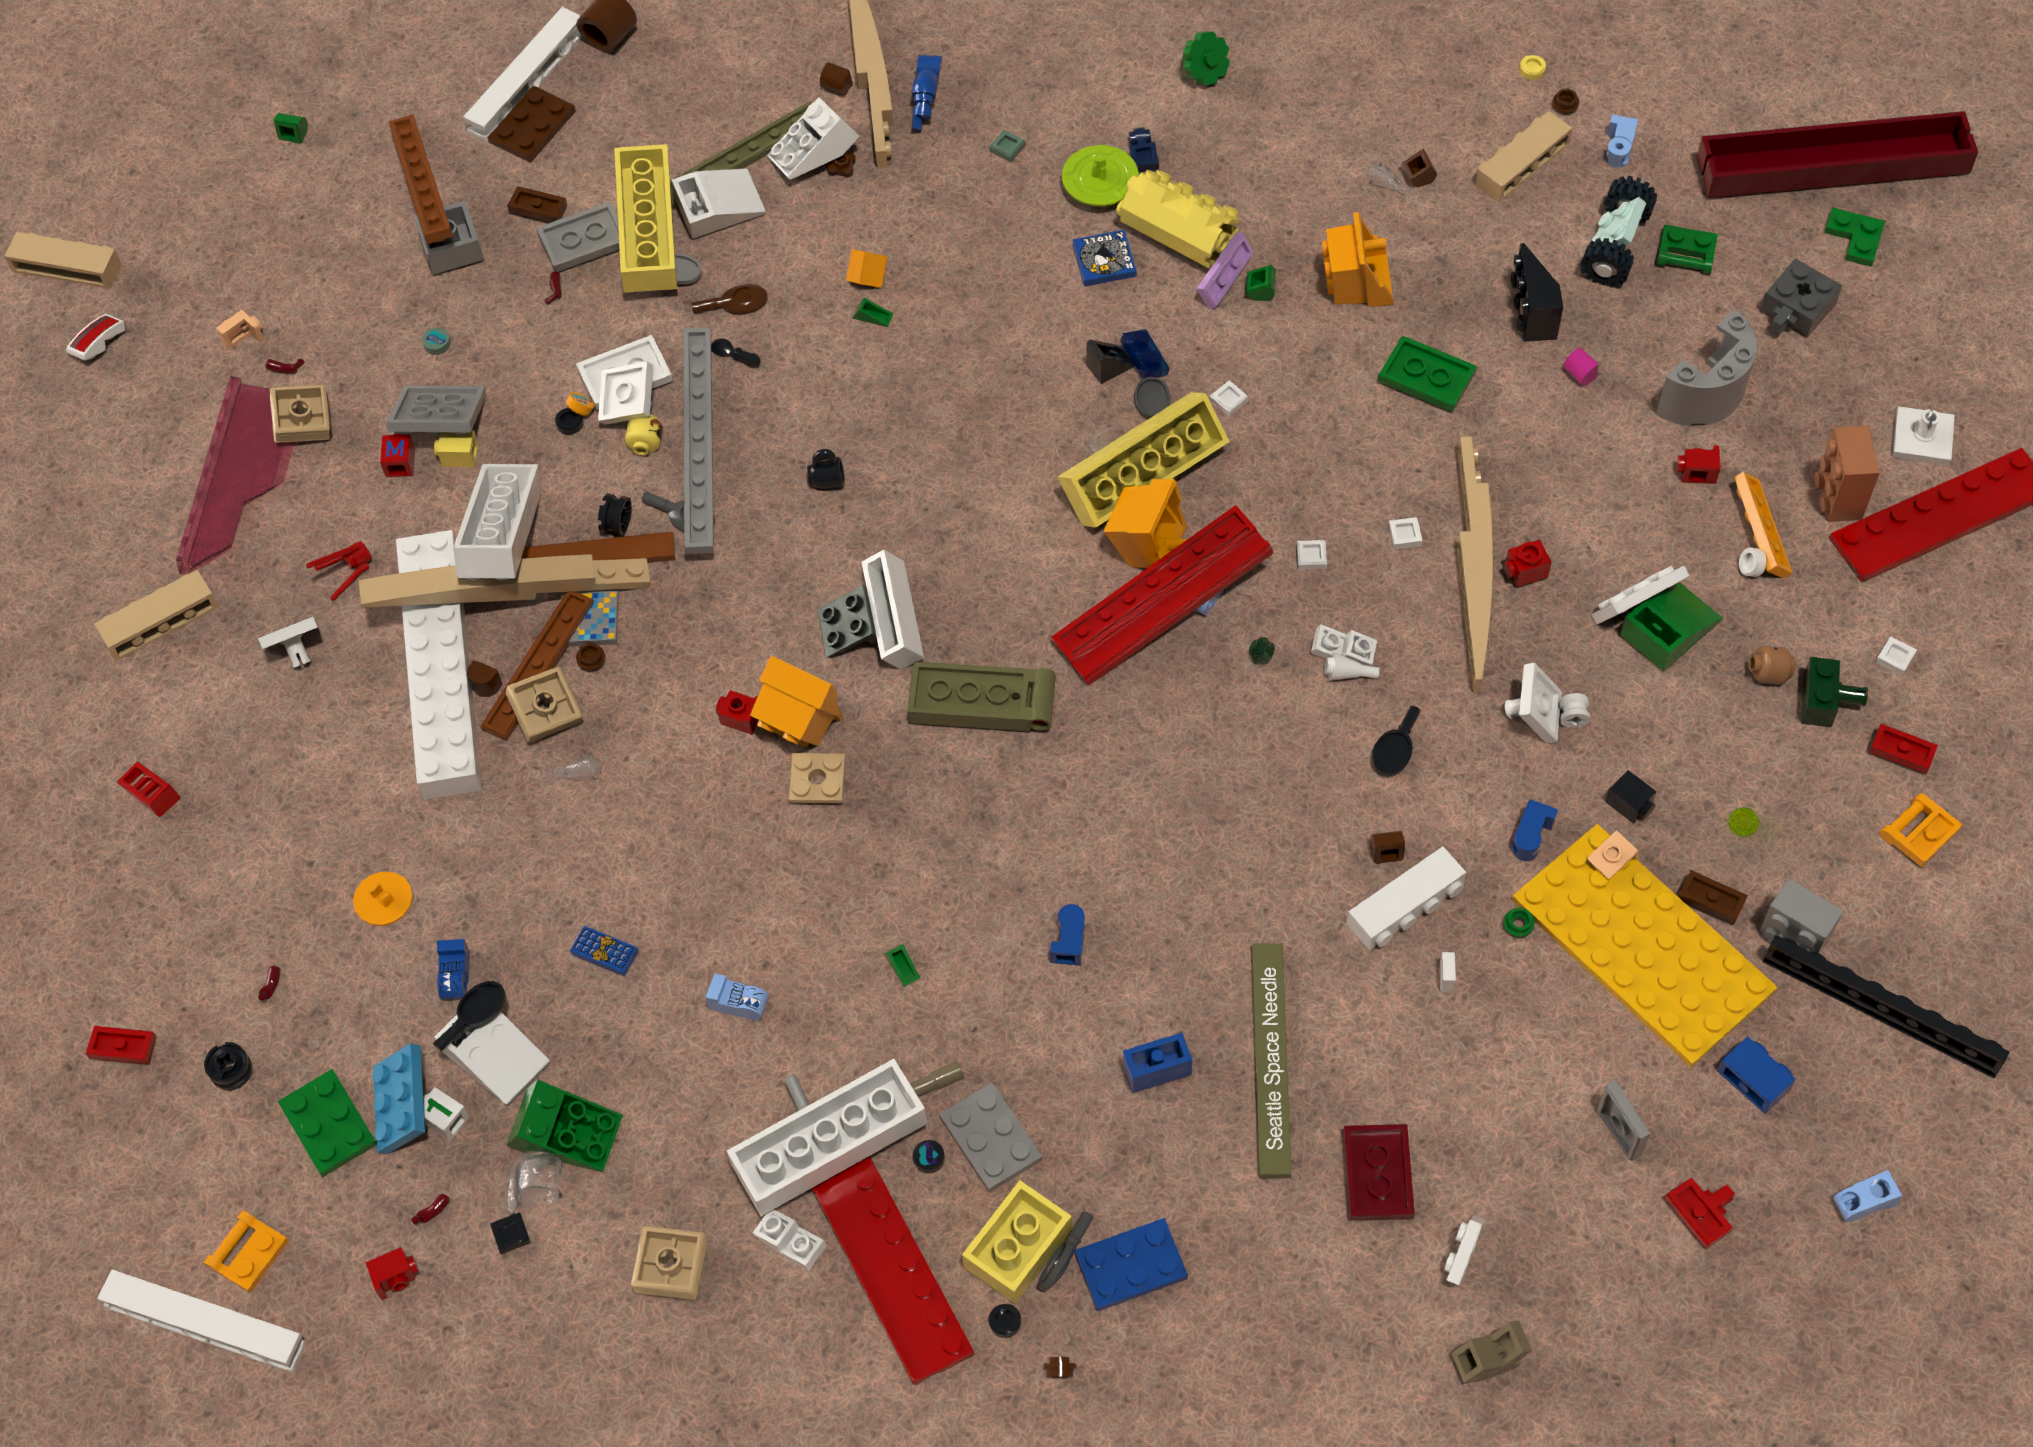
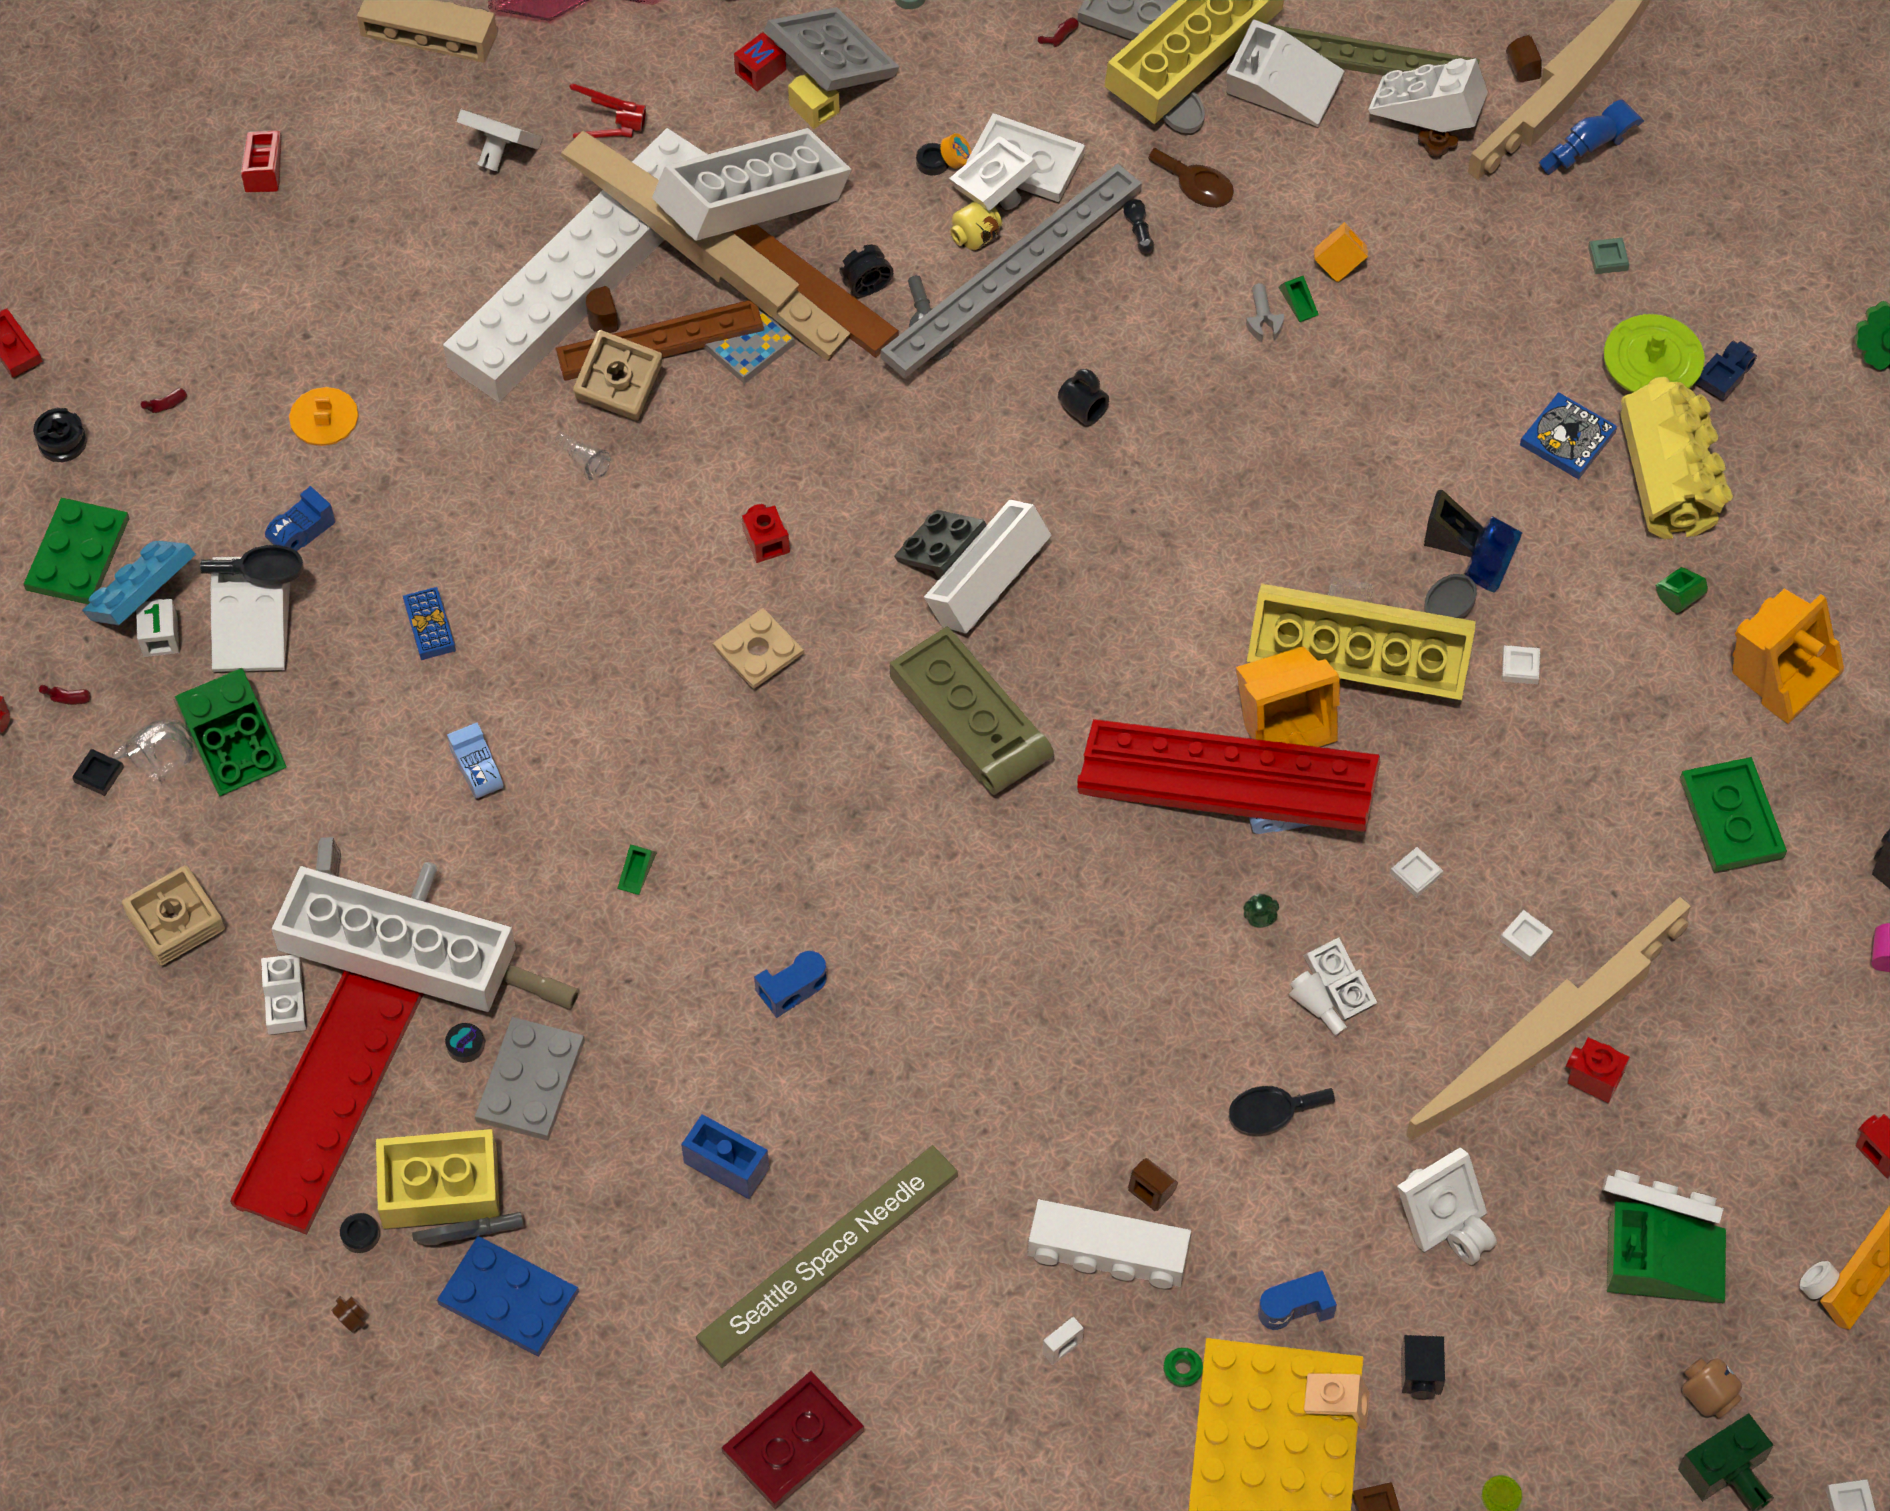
camera: 45 degrees right, 0 degrees up
(590, 657) = (707, 373): reddish brown plate -> none
(720, 1137) = (328, 857): none -> light grey tile
(795, 703) = (798, 566): light orange piece -> none
(866, 349) = (1263, 315): none -> light grey bar
(1225, 270) = (1661, 546): lavender tile -> none

